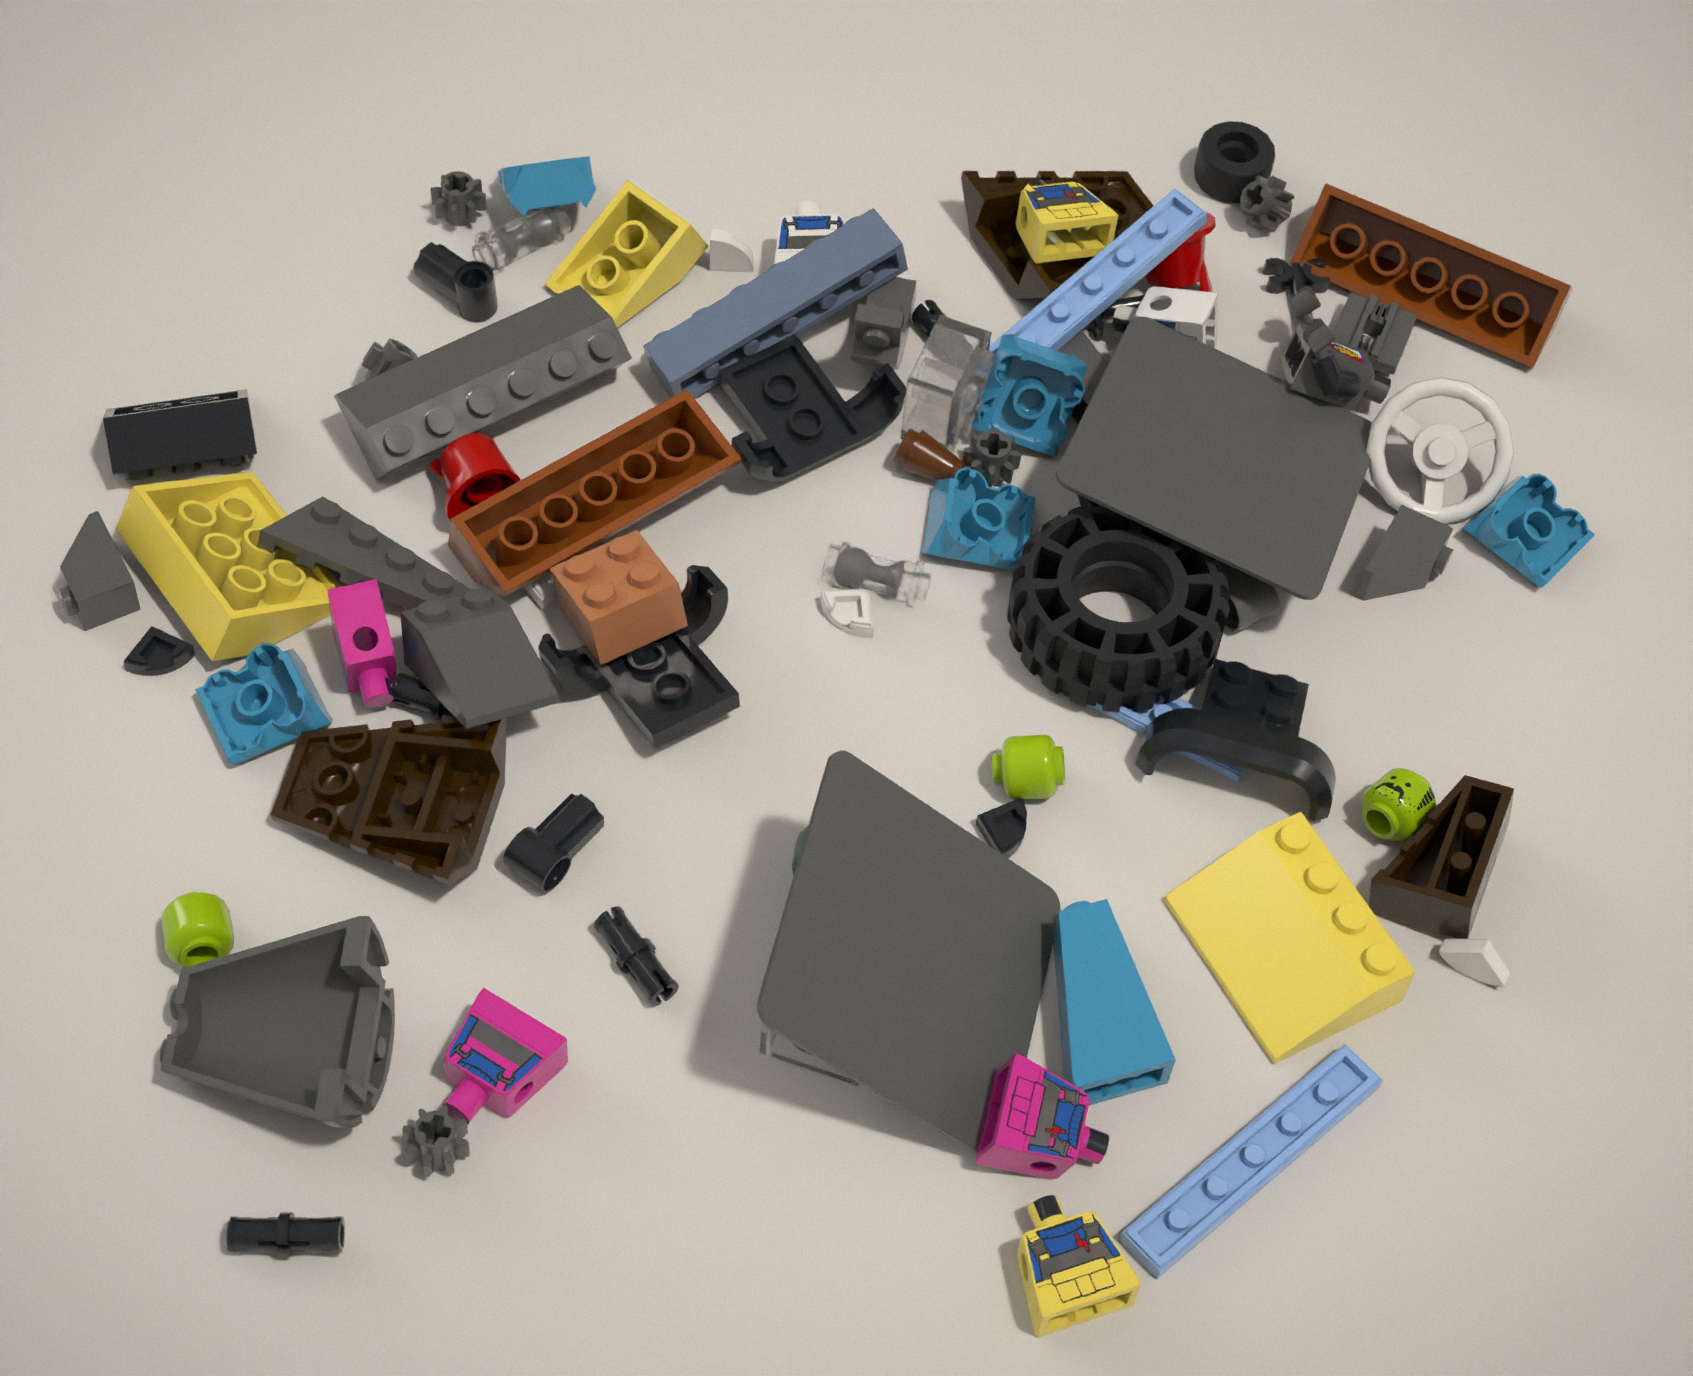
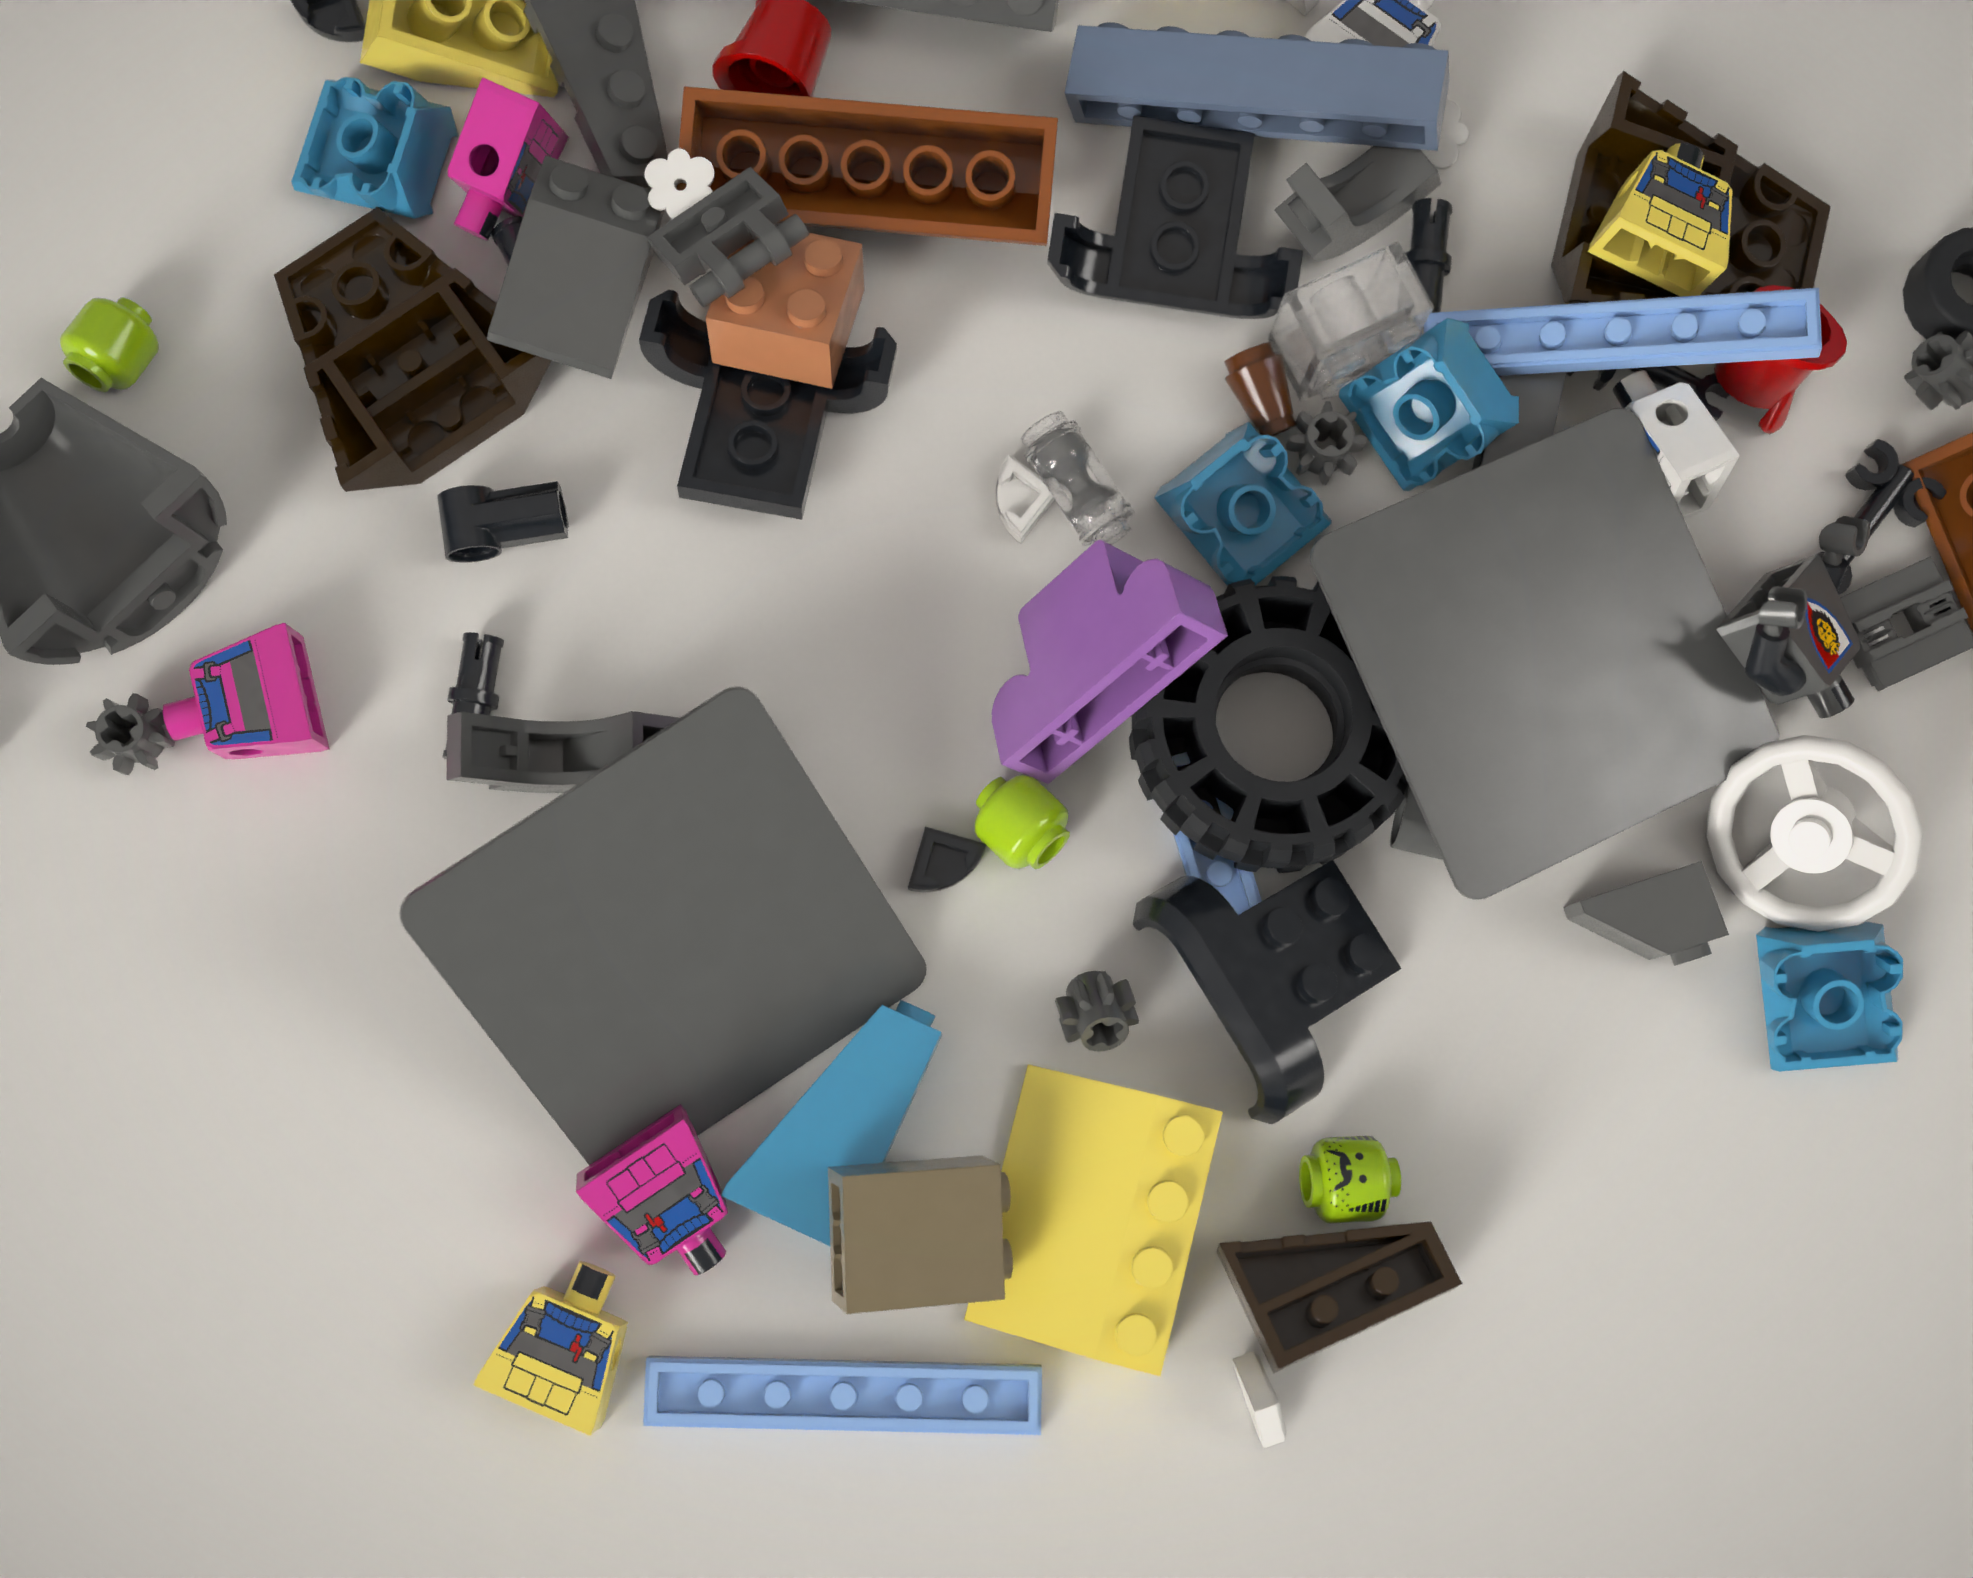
camera: 45 degrees right, 25 degrees up
(502, 560) = (665, 175): none -> white plant
(551, 574) = (720, 225): none -> dark grey plate
(732, 934) = (540, 754): none -> dark grey arch
(991, 630) = (1098, 652): none -> medium lavender brick
(1176, 828) = (1097, 1011): none -> dark grey gear
(1206, 1008) = (918, 1233): none -> dark tan brick

